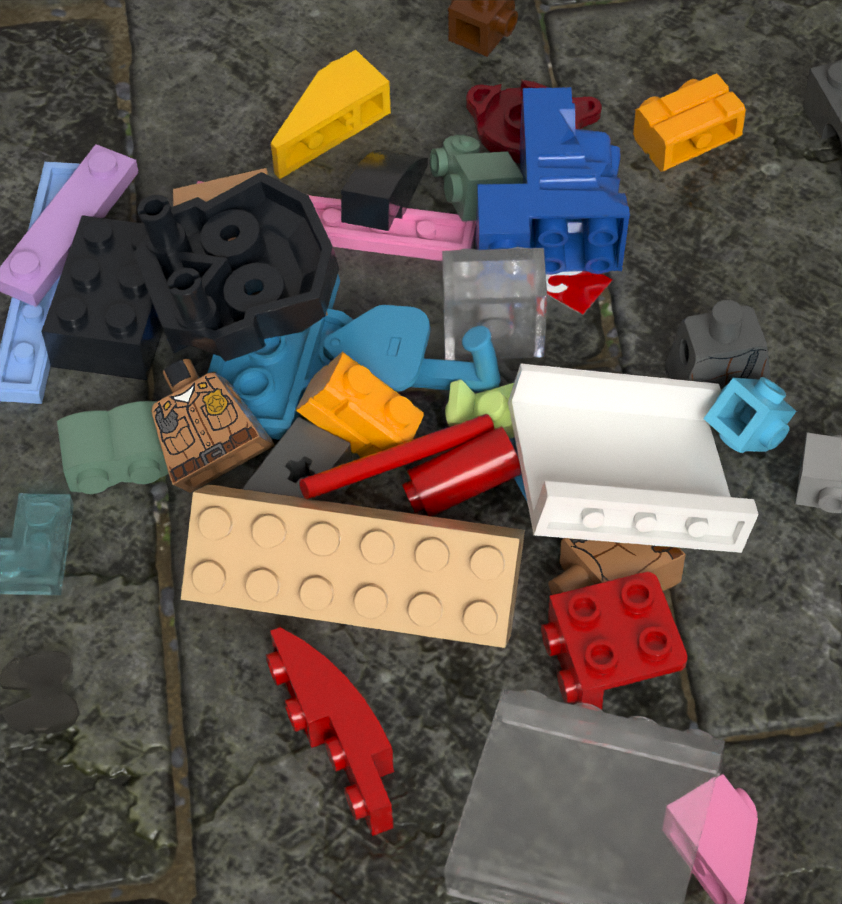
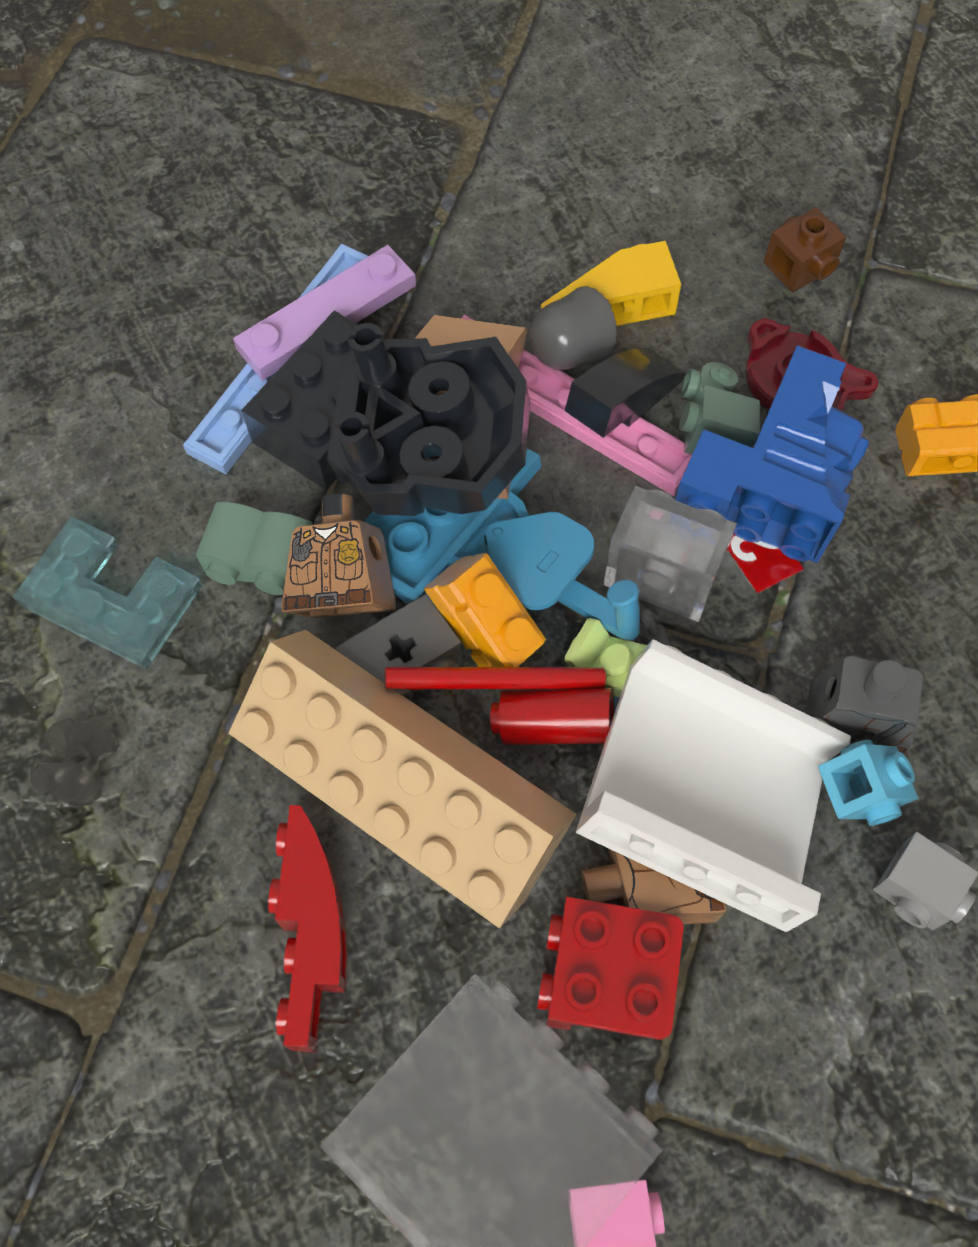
camera: 25 degrees right, 10 degrees up
(313, 153) = (574, 330): none -> dark grey hair

